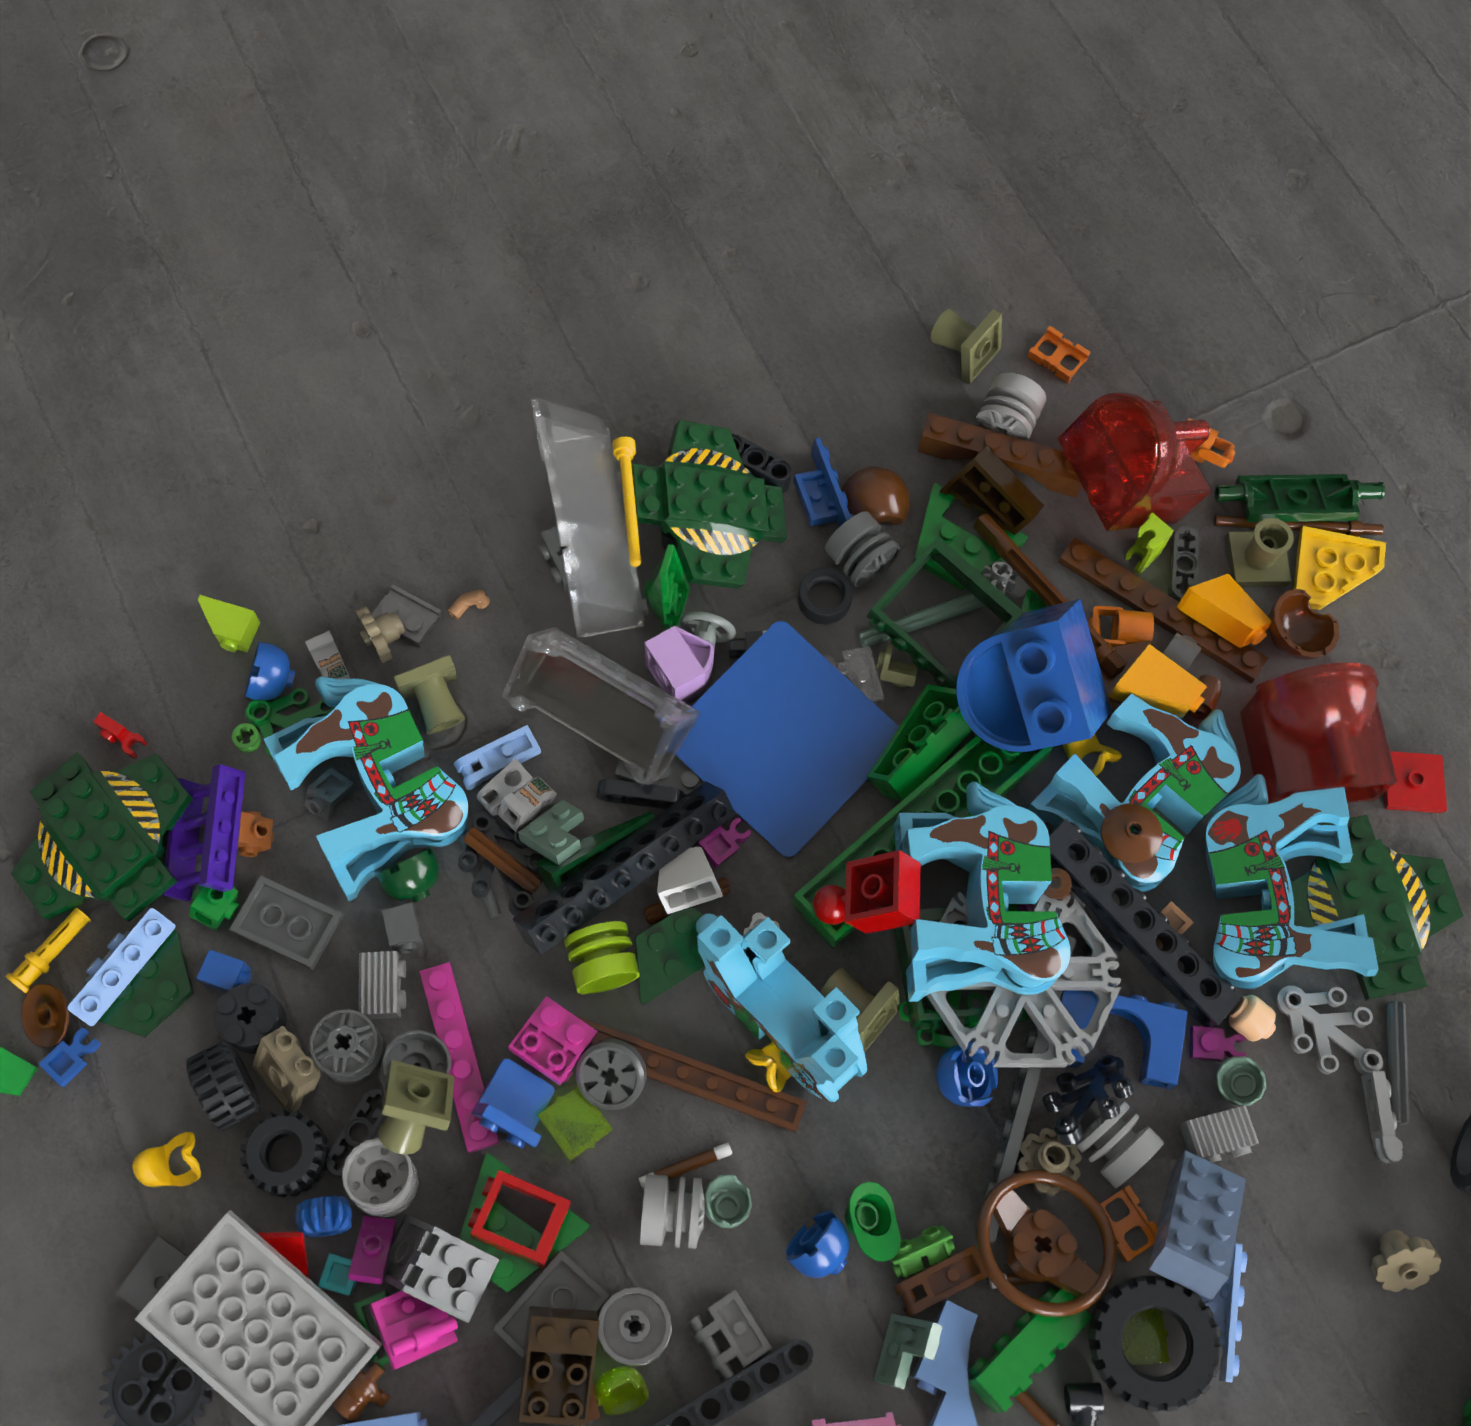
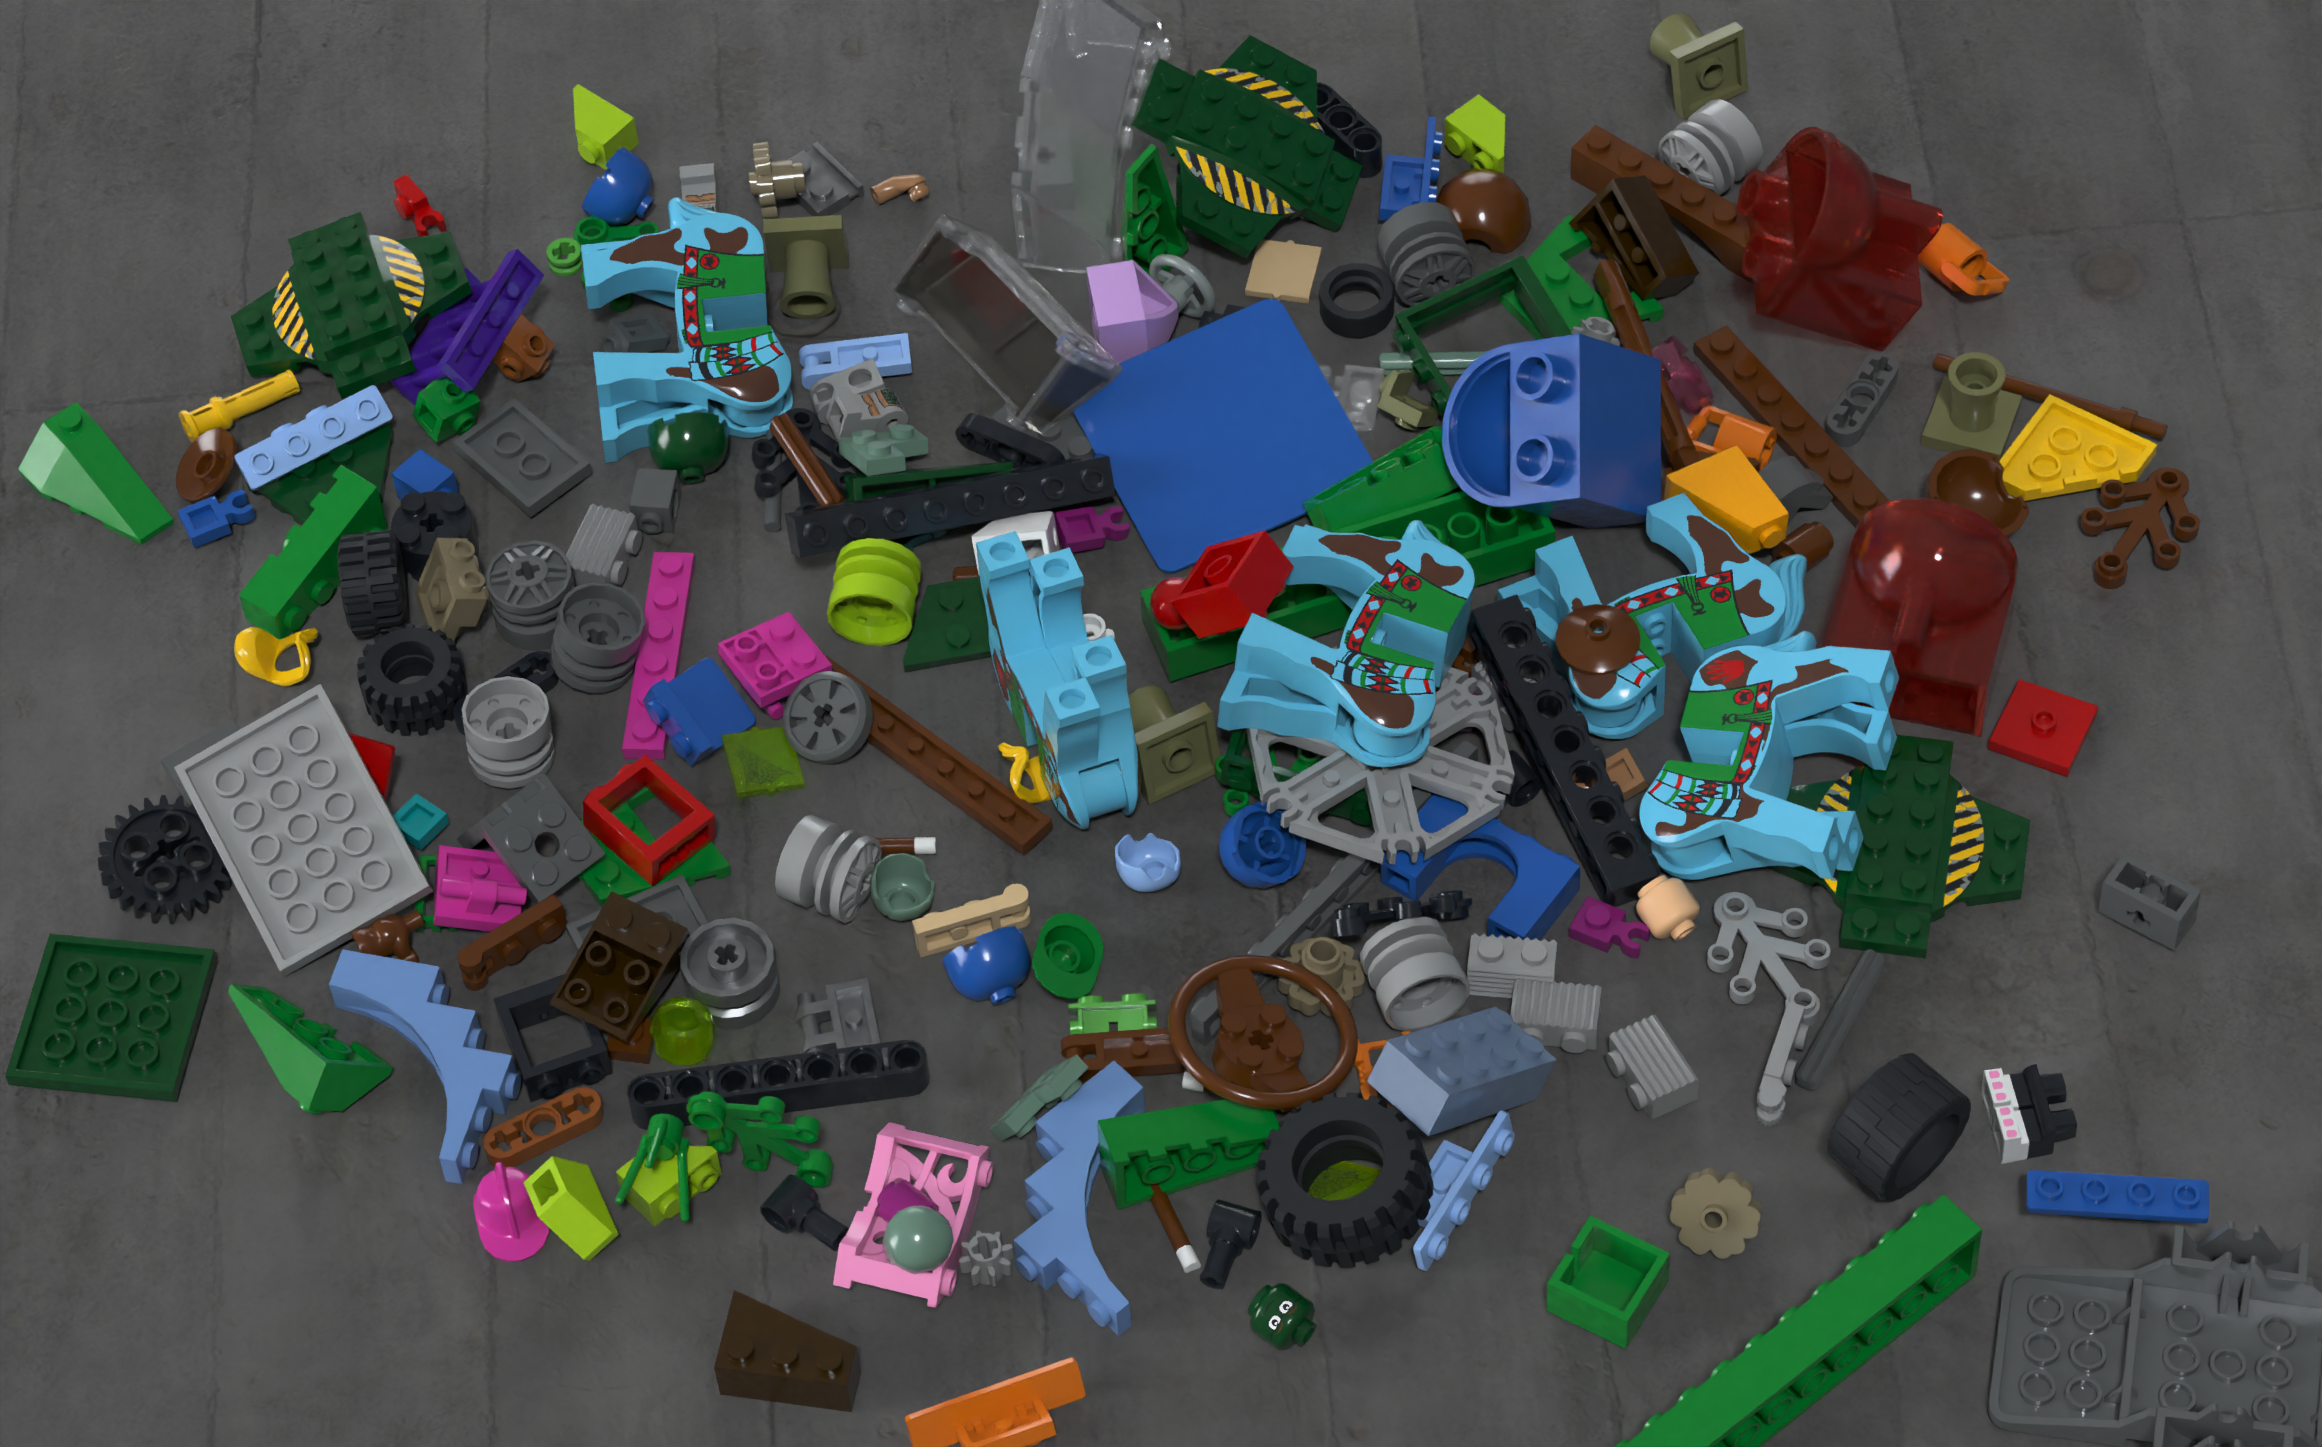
camera: 30 degrees right, 15 degrees down
(163, 1072) = (307, 568): none -> green wedge
(323, 1216) = (426, 751): blue gear -> none
(372, 1250) = (465, 804): magenta plate -> none
(412, 1101) = (580, 639): olive plant -> none
(457, 1360) = (511, 942): none -> reddish brown plate
(624, 451) = (1155, 44): yellow piece -> none
(764, 586) = (1283, 271): none -> tan piece
(788, 1207) = (963, 924): none -> tan plate
(851, 441) = (1477, 134): none -> lime slope
(890, 1112) = (1147, 863): none -> light blue hair
(1060, 884) = (1471, 667): reddish brown plate -> none
(1064, 348) = (1835, 109): orange piece -> none
(1069, 583) = (1687, 378): none -> clear pink plate
(1087, 746) = (1608, 555): yellow piece -> none
(1150, 542) = (1817, 352): lime hinge -> none
(1175, 1107) = (1499, 961): none -> light grey brick
(1226, 611) = (1877, 452): light orange slope -> none
(1241, 1081) = (1613, 963): sand green hair -> none
(1299, 496) = (2062, 358): dark green plate -> none
(1301, 1153) = (1652, 1067): none -> light grey brick
(1362, 1351) = (1613, 1282): none -> green piece
(1402, 603) = (2164, 488): none -> reddish brown plant

